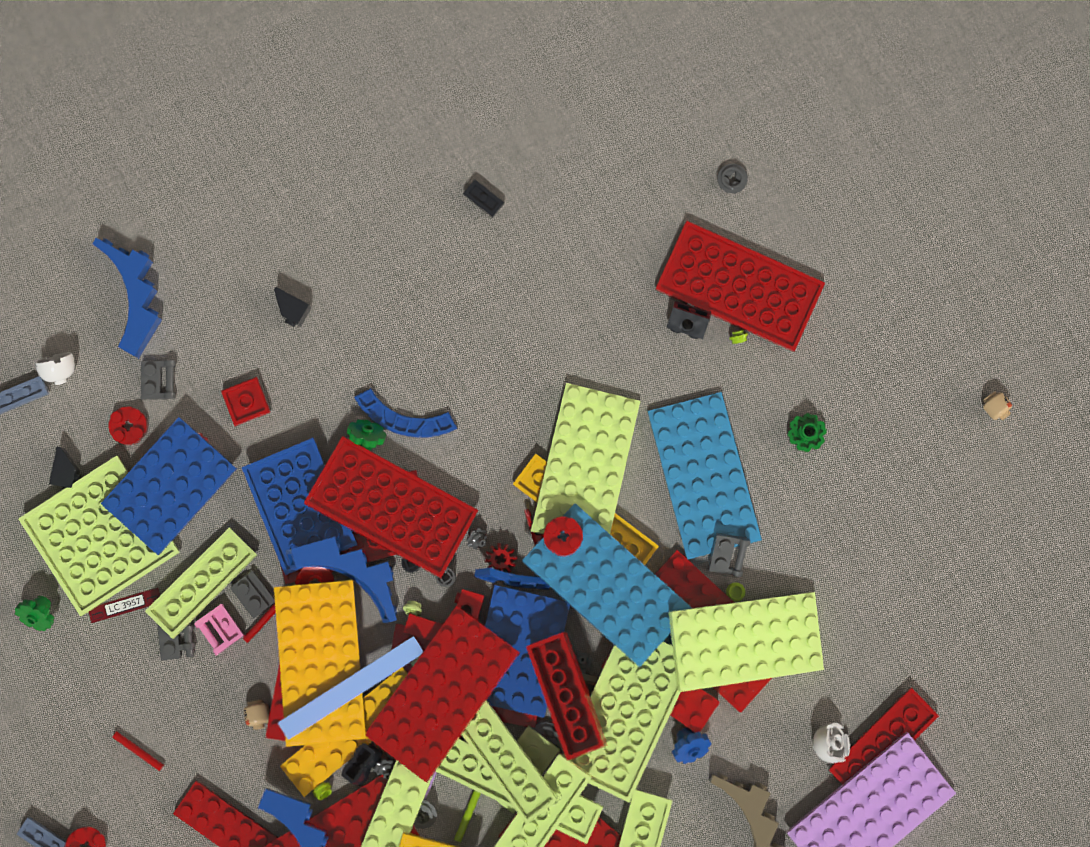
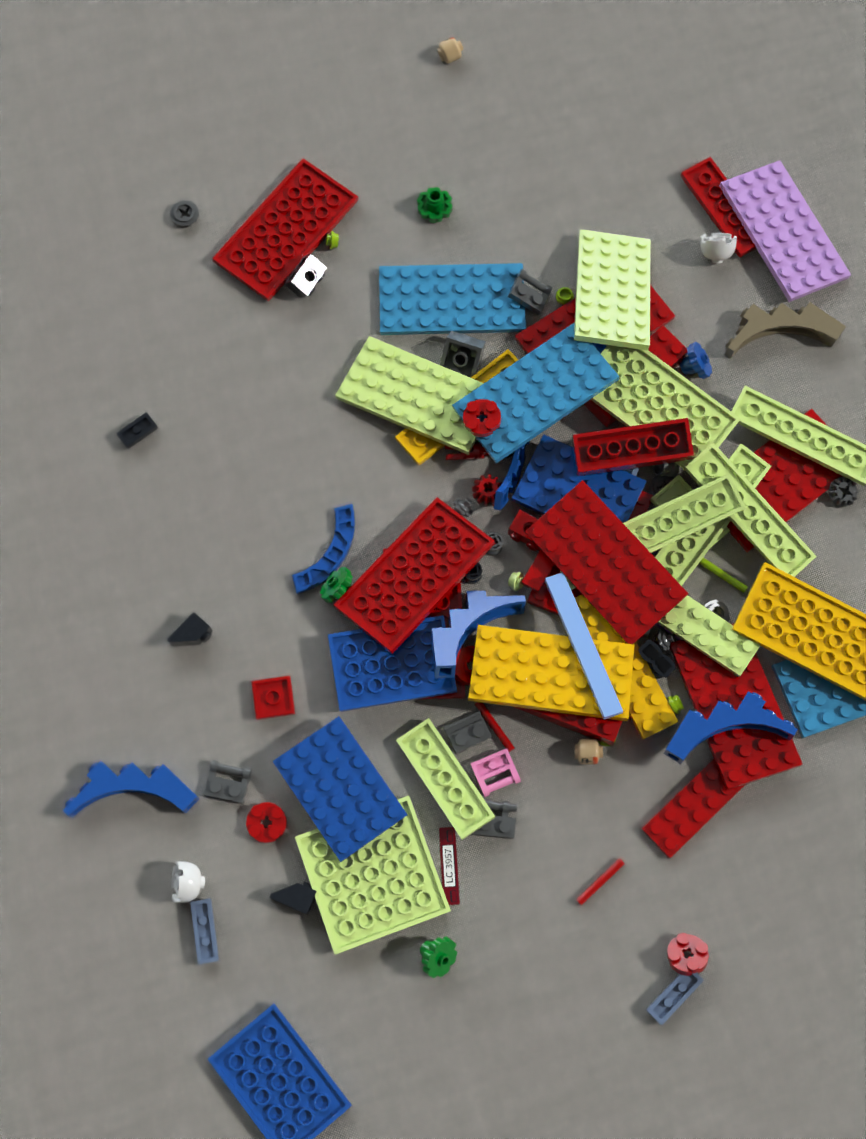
camera: 80 degrees left, 10 degrees down
(641, 500) = (462, 353): none -> dark grey slope

